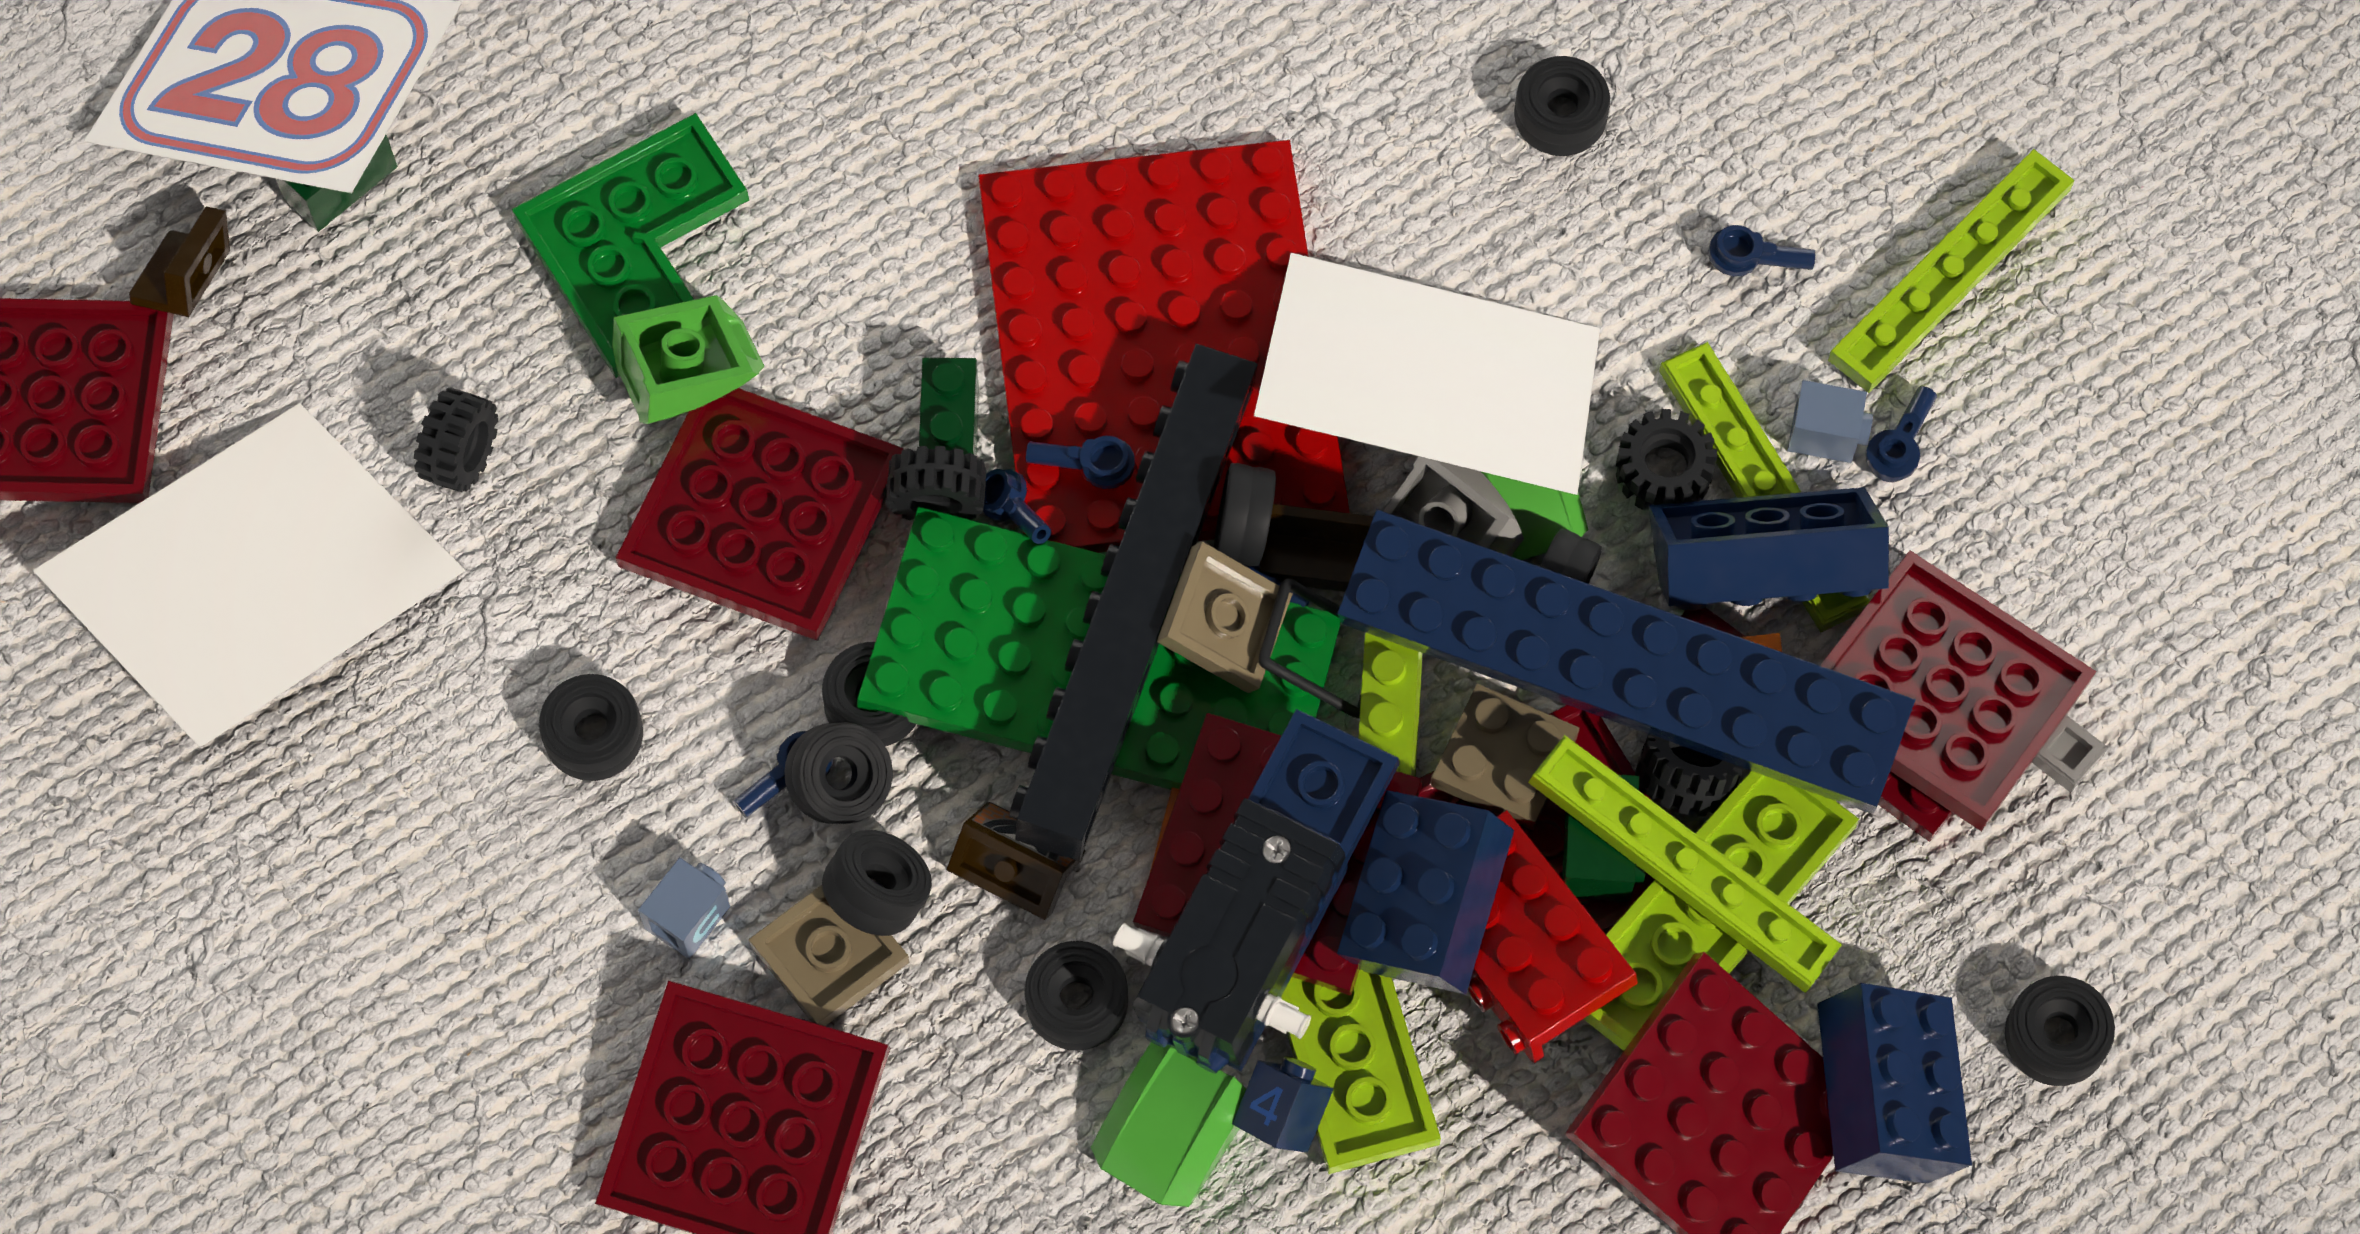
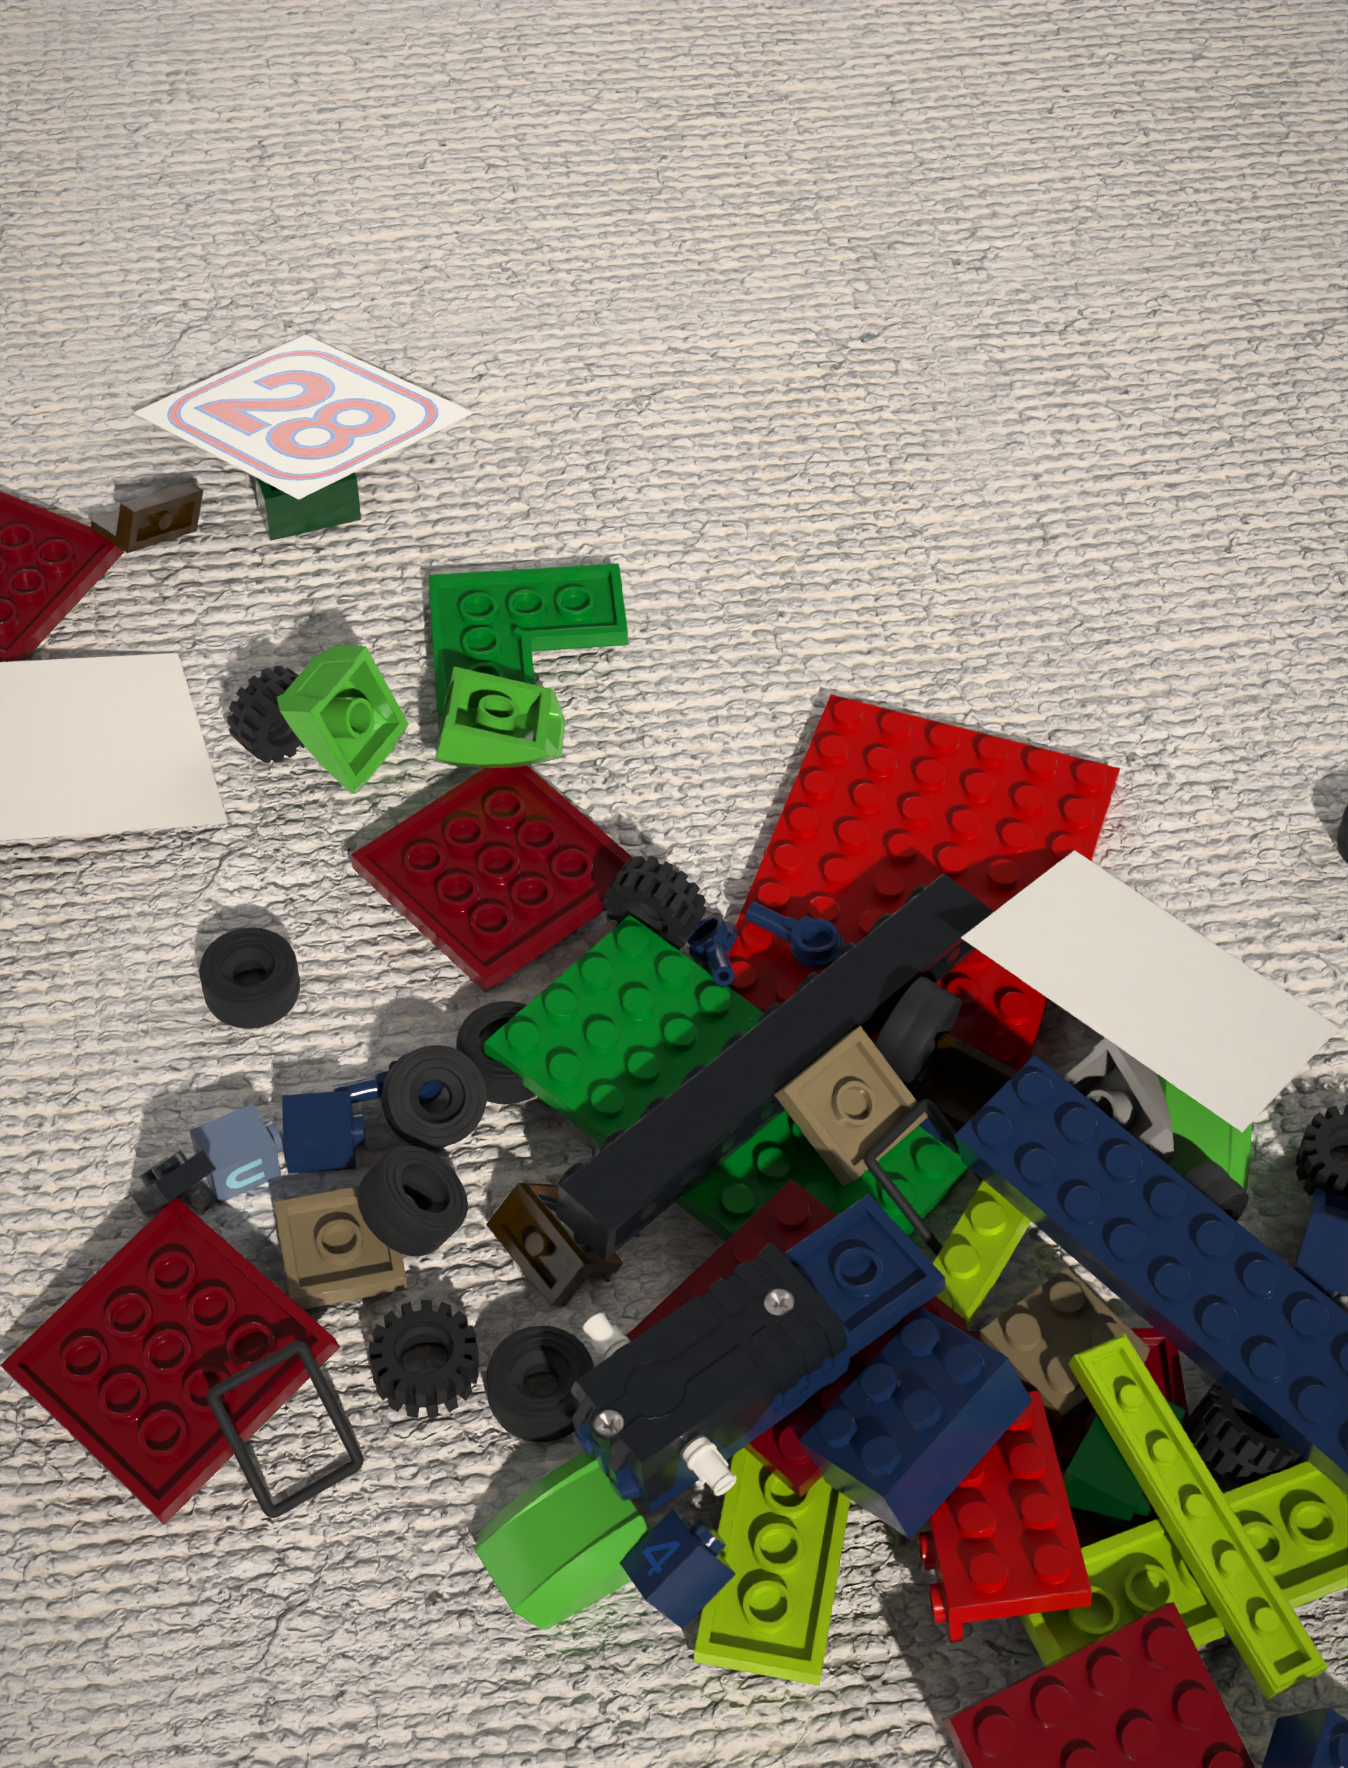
camera: 25 degrees right, 15 degrees down
(529, 413) = (344, 714): none -> bright green slope
(650, 965) = (170, 1179): none -> black plate
(750, 851) = (321, 1131): none -> dark blue brick
(851, 1176) = (240, 1452): none -> black piece
(949, 404) = (707, 848): dark green brick -> none
(955, 988) = (417, 1329): none -> black tyre

